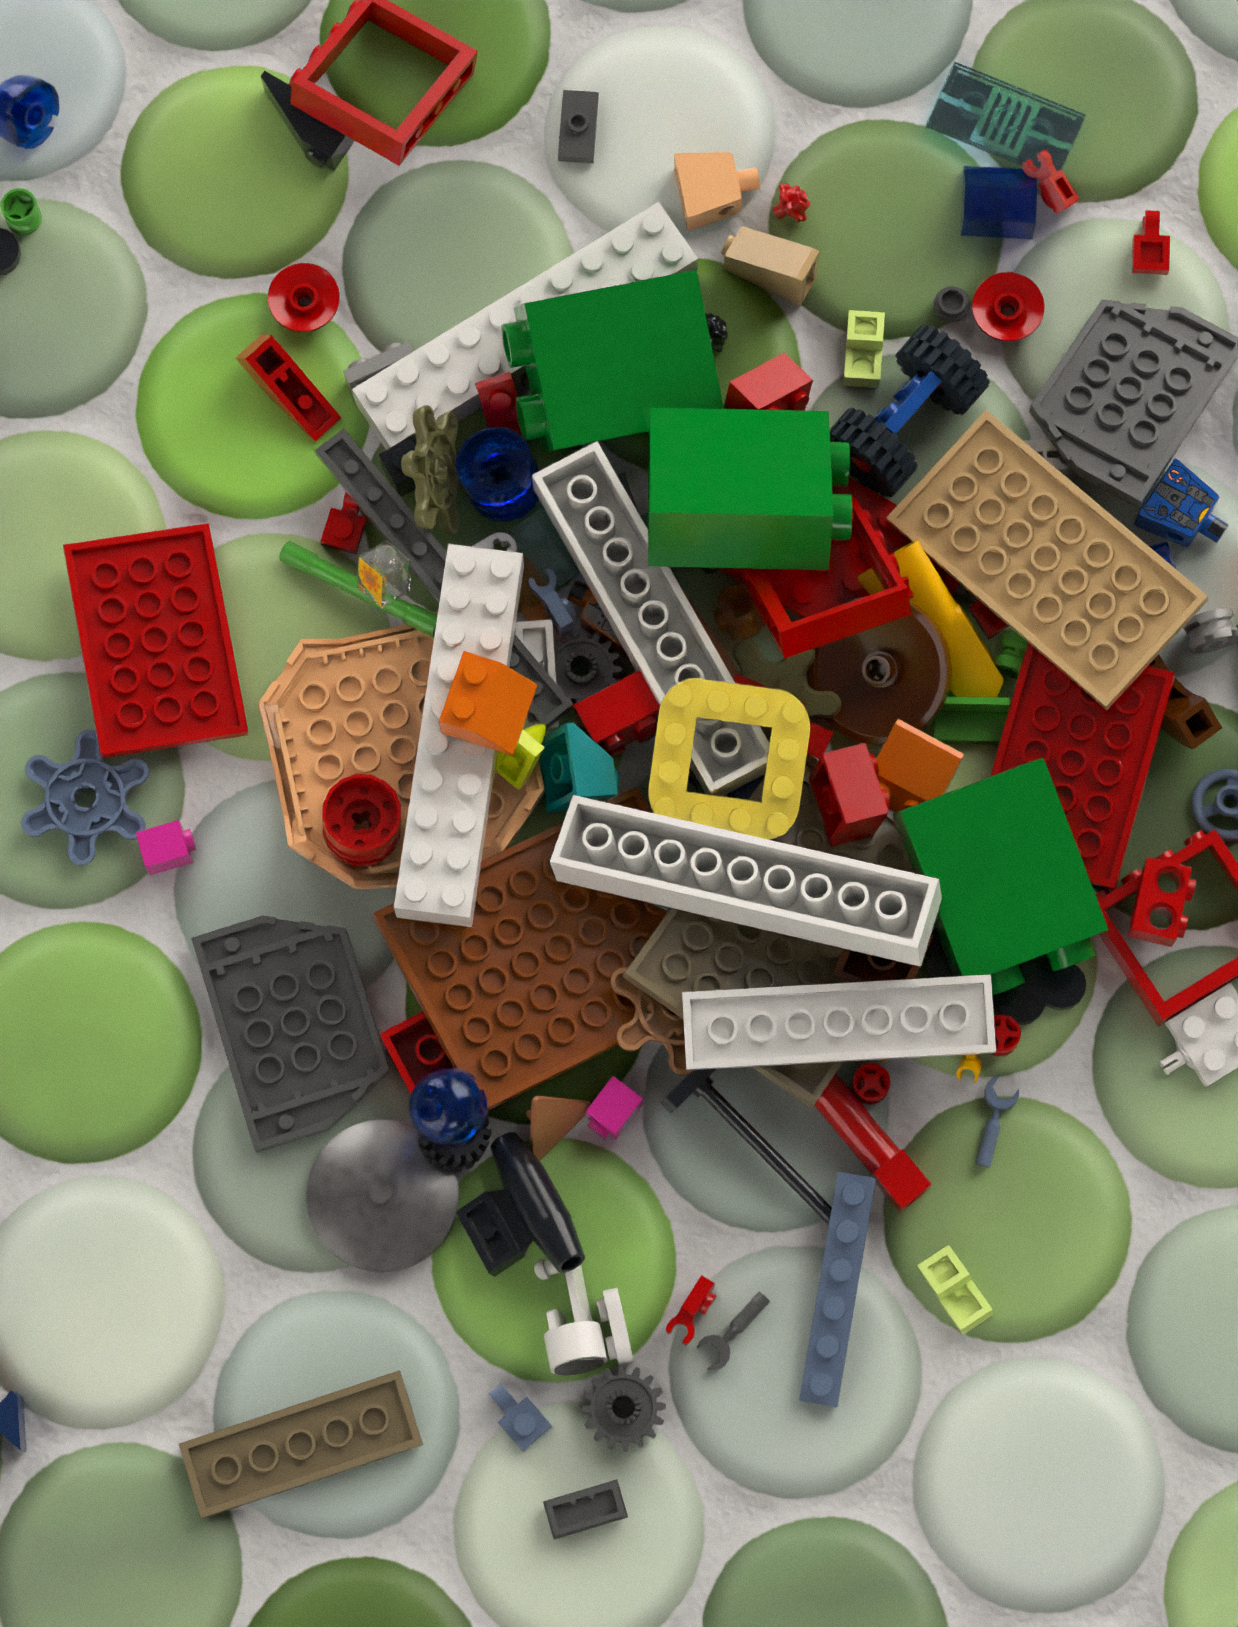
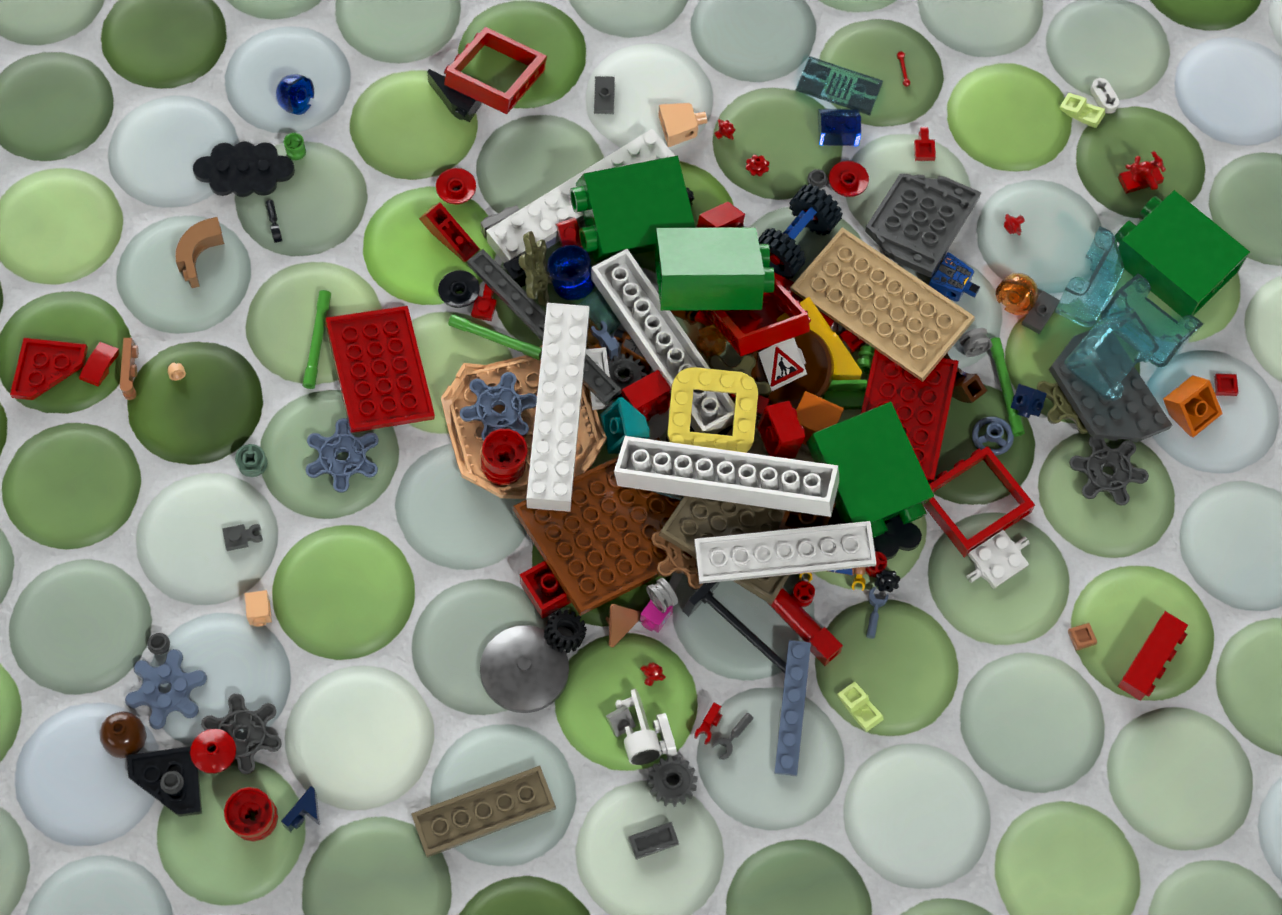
camera: 10 degrees left, 10 degrees down
(37, 636) = (311, 370): none -> bright green piece
(166, 847) = (390, 480): dark pink brick -> none
(291, 1024) = (467, 575): dark grey plate -> none
(295, 479) = (455, 282): none -> black dish
(365, 701) = (501, 394): none -> sand blue plate
(384, 573) = (509, 325): clear brick -> none
(447, 1106) = (562, 610): clear blue cylinder -> none
(487, 704) = (574, 383): orange slope -> none
(519, 767) = (592, 417): neon yellow tile -> none
(522, 1420) = (613, 792): sand blue plate -> none
(525, 1211) = (609, 670): black plate -> none
(541, 1296) = (619, 720): none -> light grey plate
(601, 1215) = (653, 673): none -> red plant
(622, 1084) = (662, 595): none -> light grey wheel
(772, 263) = (717, 159): tan slope -> none
(845, 274) = (757, 165): none -> red plant
(863, 666) = (783, 363): none -> white piece
(864, 349) = (770, 204): yellowish green slope -> none
(1019, 1067) = (887, 581): none -> black plant
(1054, 185) = (869, 116): red plate -> none
(1123, 65) = (901, 55): none -> red hinge
(1152, 900) = (957, 483): red brick -> none

